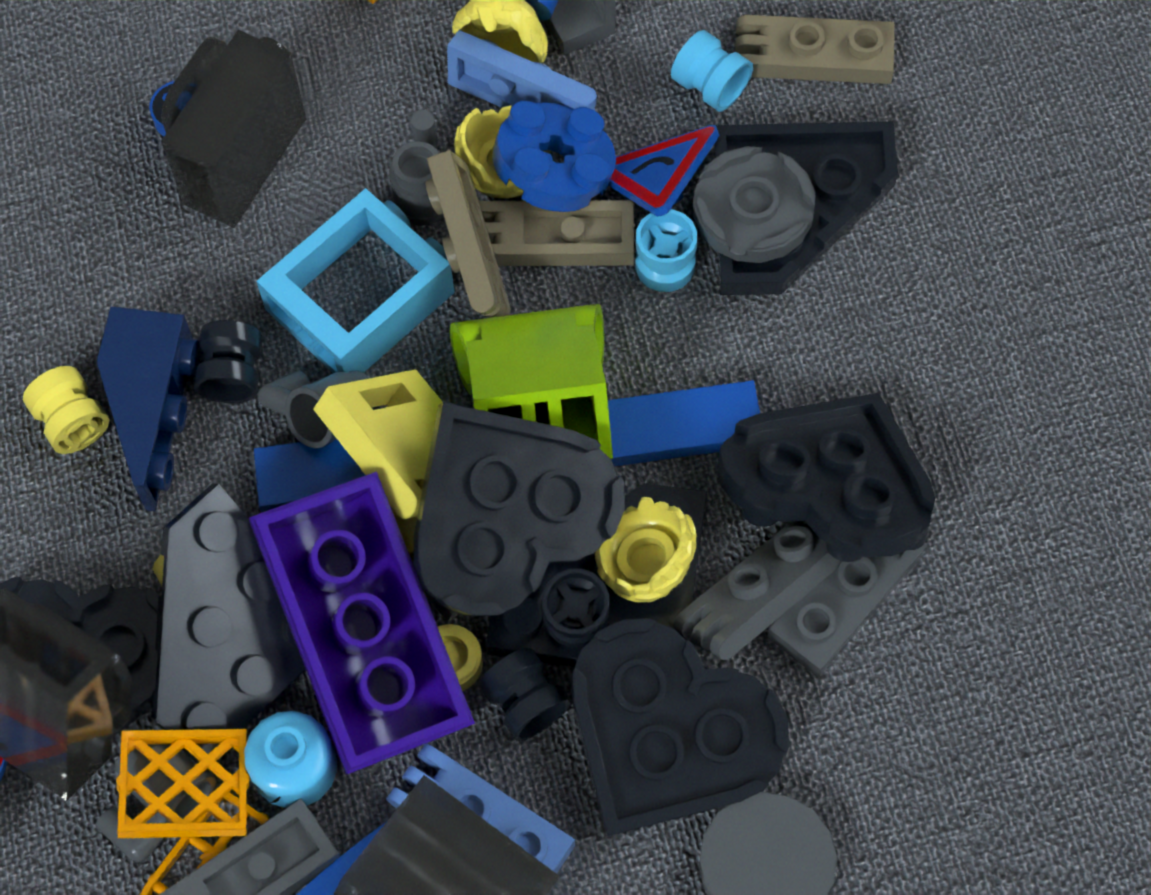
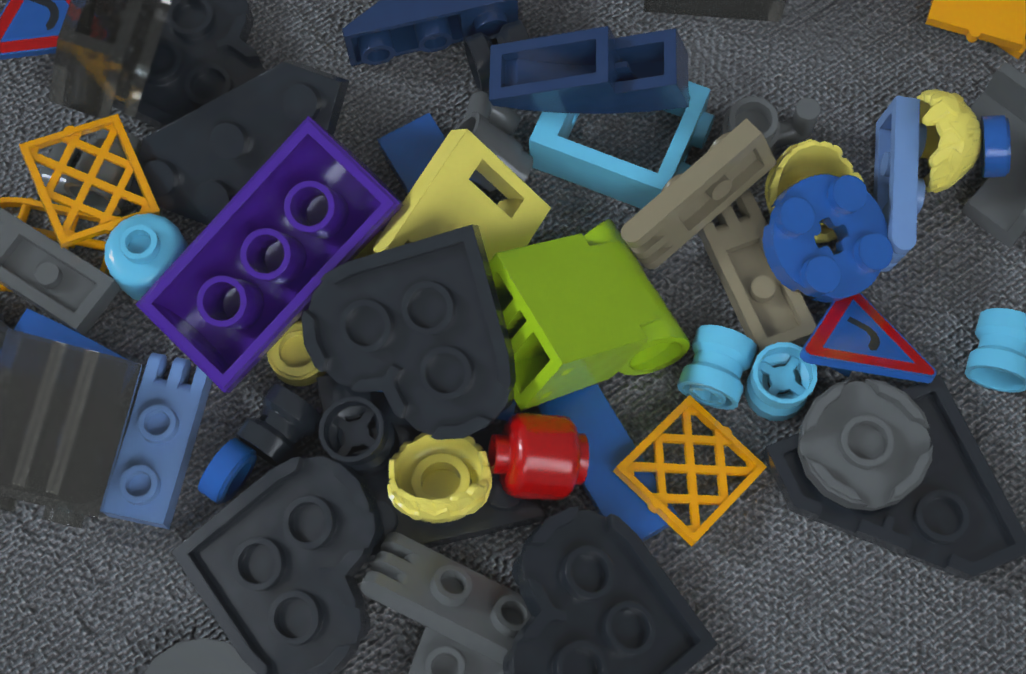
camera: 70 degrees right, 5 degrees up
(307, 274) = (591, 73): none -> dark blue slope
(548, 757) = (227, 471): none -> blue tile
(630, 294) = (717, 366): none -> medium azure wheel
(660, 460) = (539, 456): none -> red head
(734, 389) = (659, 501): none -> light orange window

